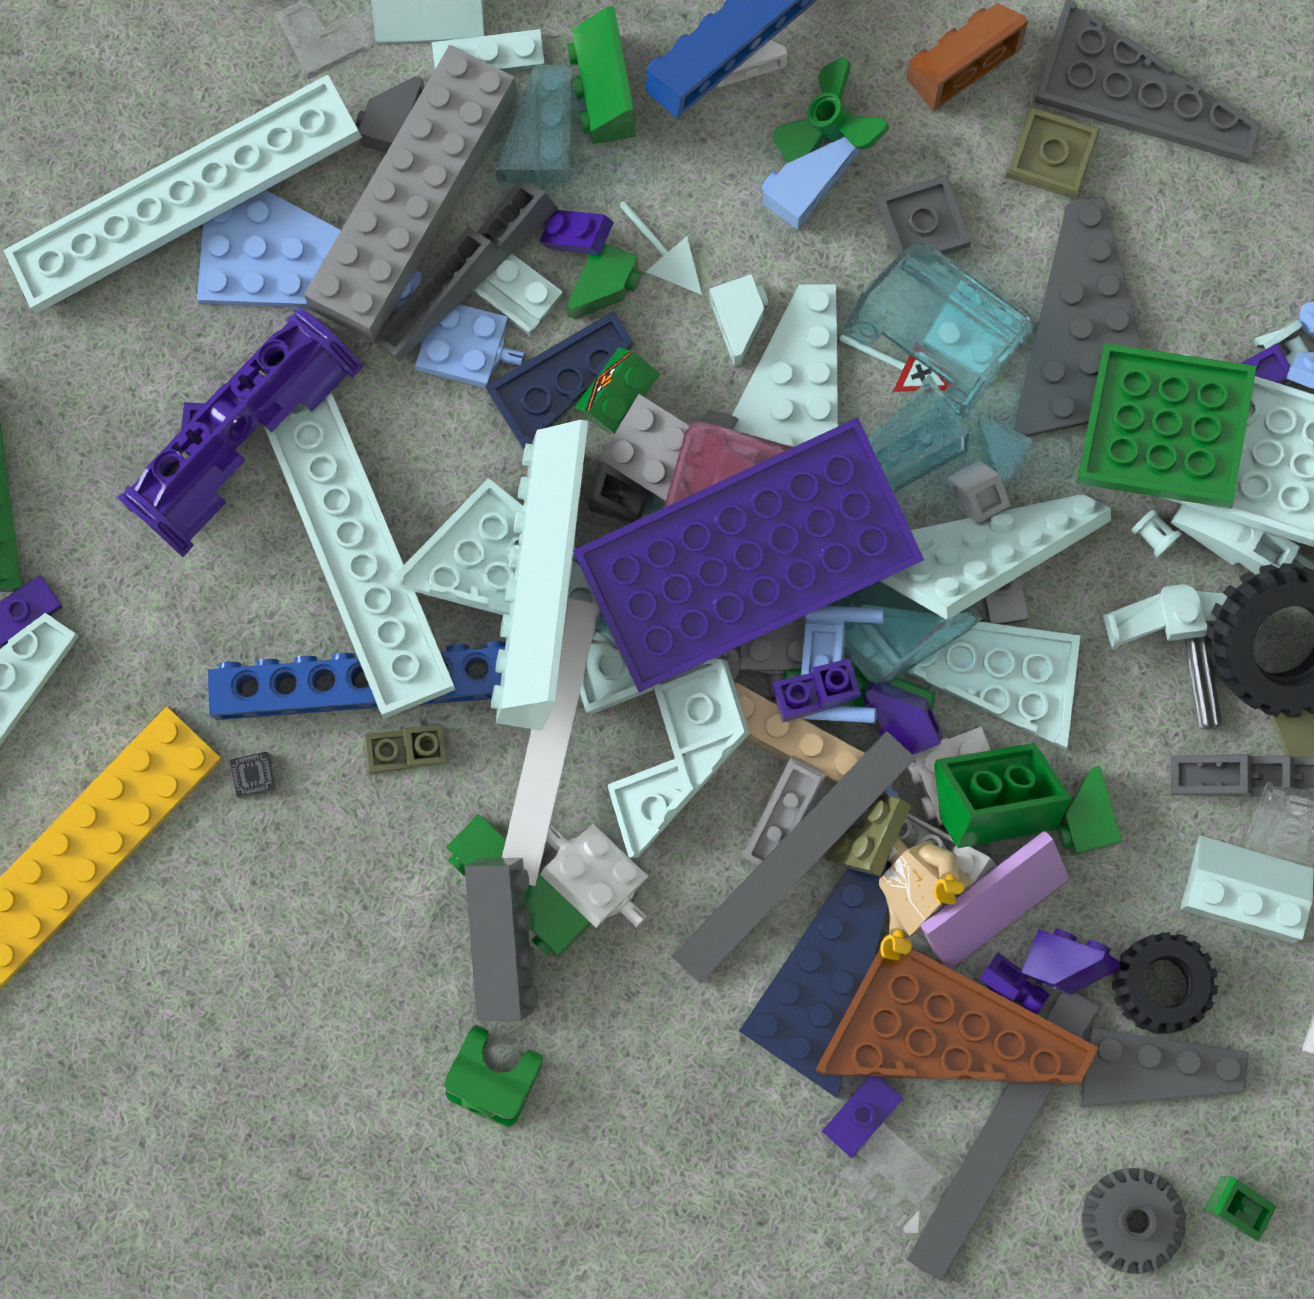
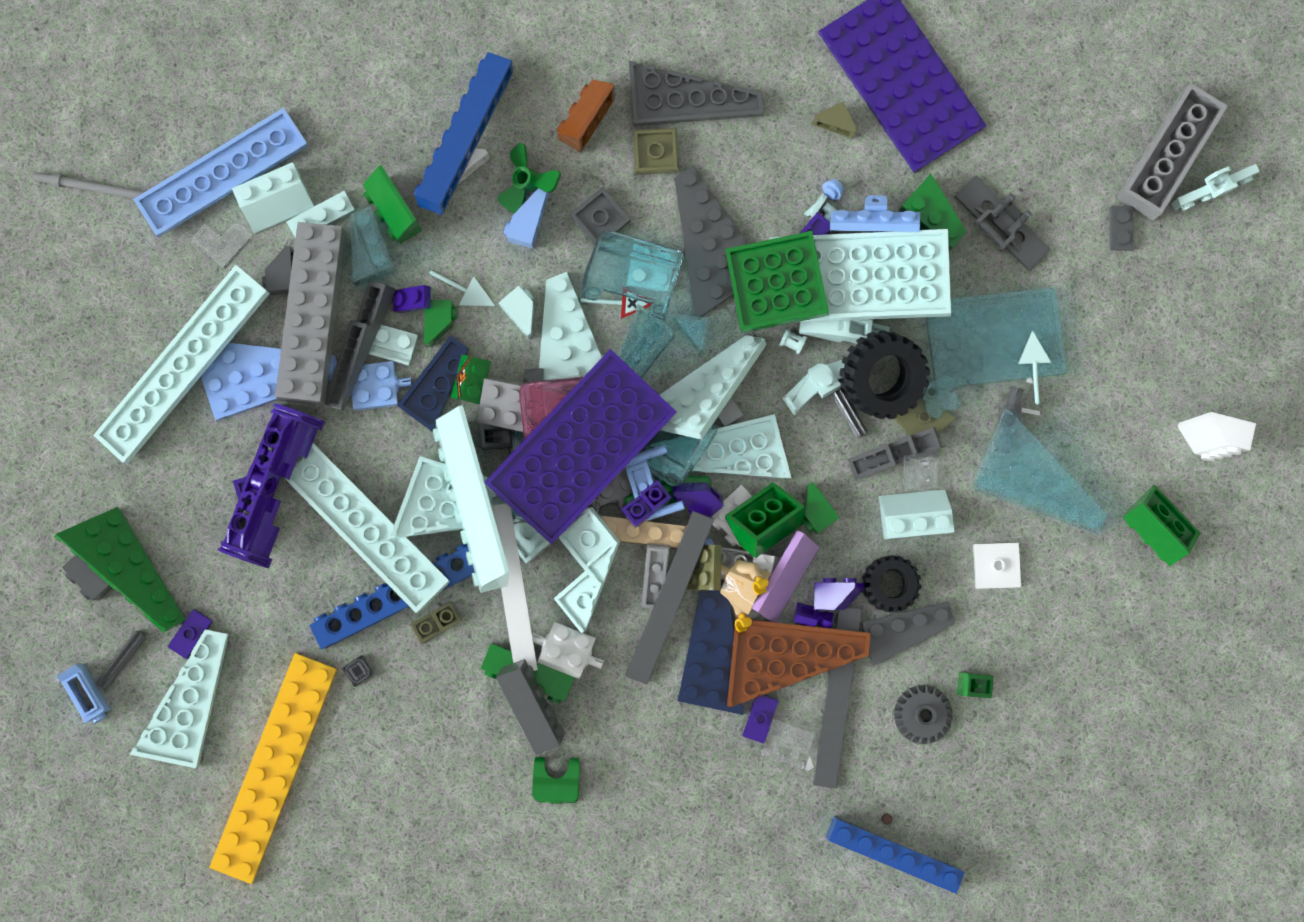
camera: 35 degrees left, 5 degrees up
(978, 491) = (689, 357): light grey brick -> none

